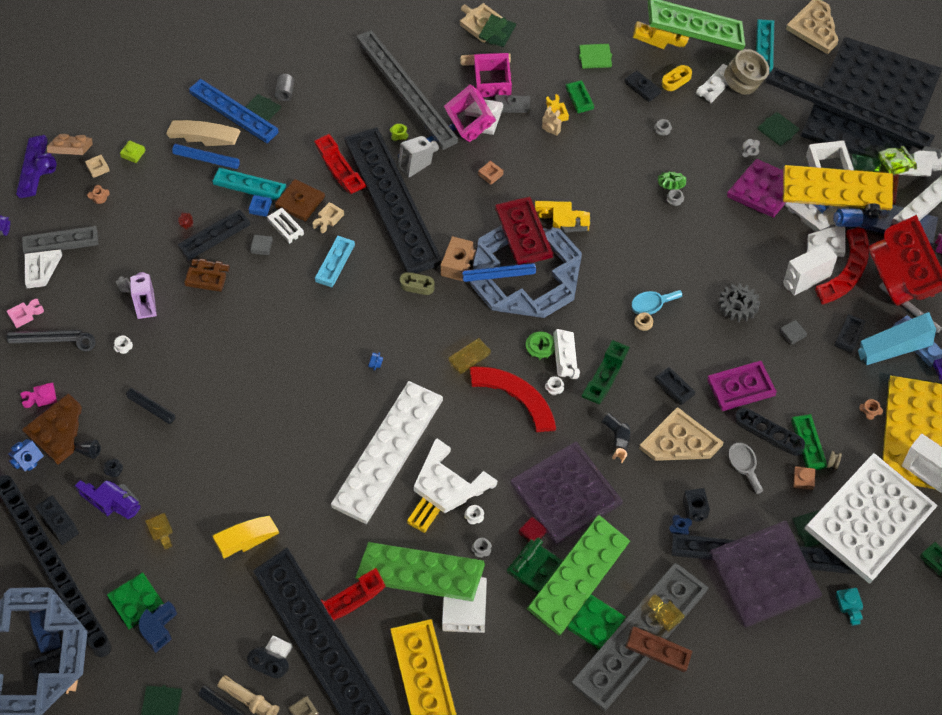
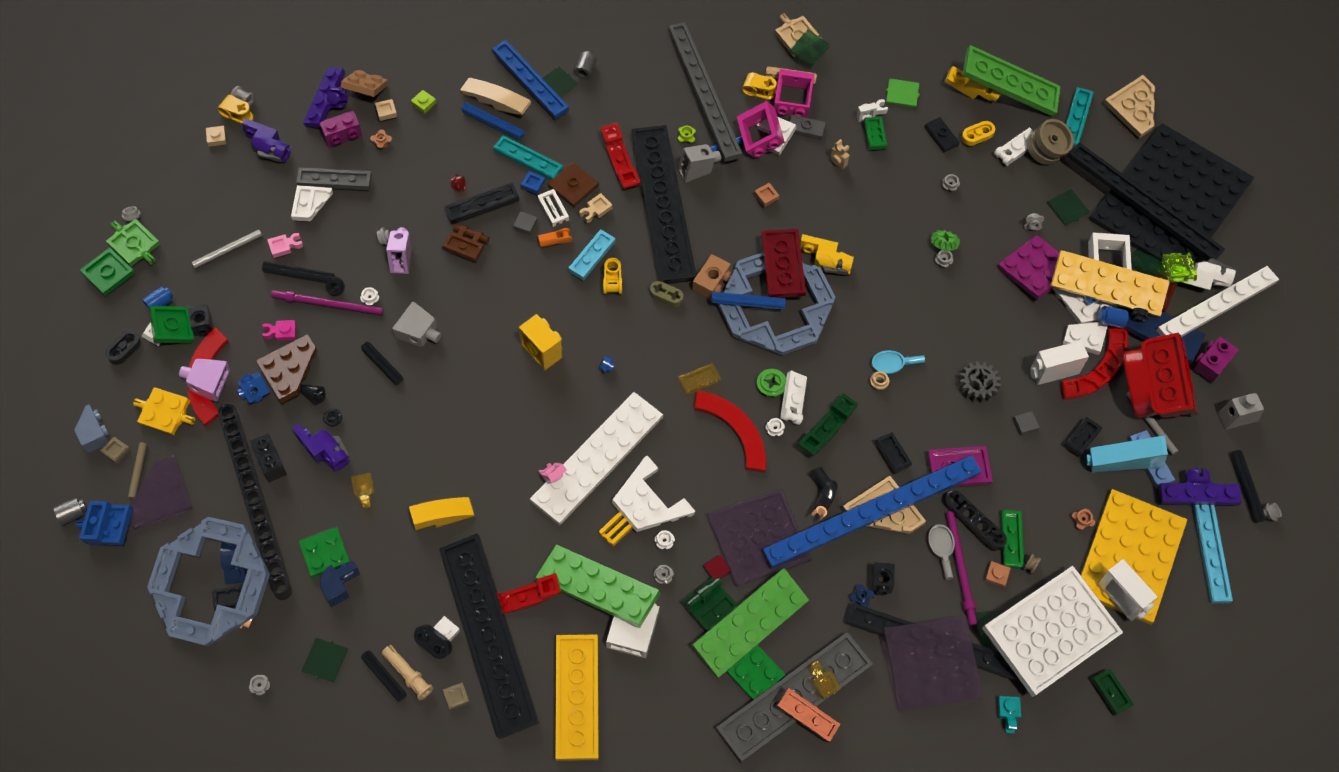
camera: 10 degrees right, 5 degrees up
(43, 361) = (291, 296): none -> magenta bar
(56, 192) = (340, 129): none -> magenta brick
(177, 363) = (416, 326): none -> light grey torso
(298, 251) = (552, 238): none -> orange bar
(305, 351) = (541, 341): none -> yellow brick
(348, 473) = (553, 472): none -> bright pink plate
(360, 280) = (612, 279): none -> yellow piece
(457, 74) = (758, 85): none -> yellow piece
(555, 105) = (848, 139): yellow plate -> none
(570, 76) = (871, 110): none -> white plate
(667, 445) = (871, 512): none -> blue plate
(784, 511) = (968, 604): none -> magenta bar

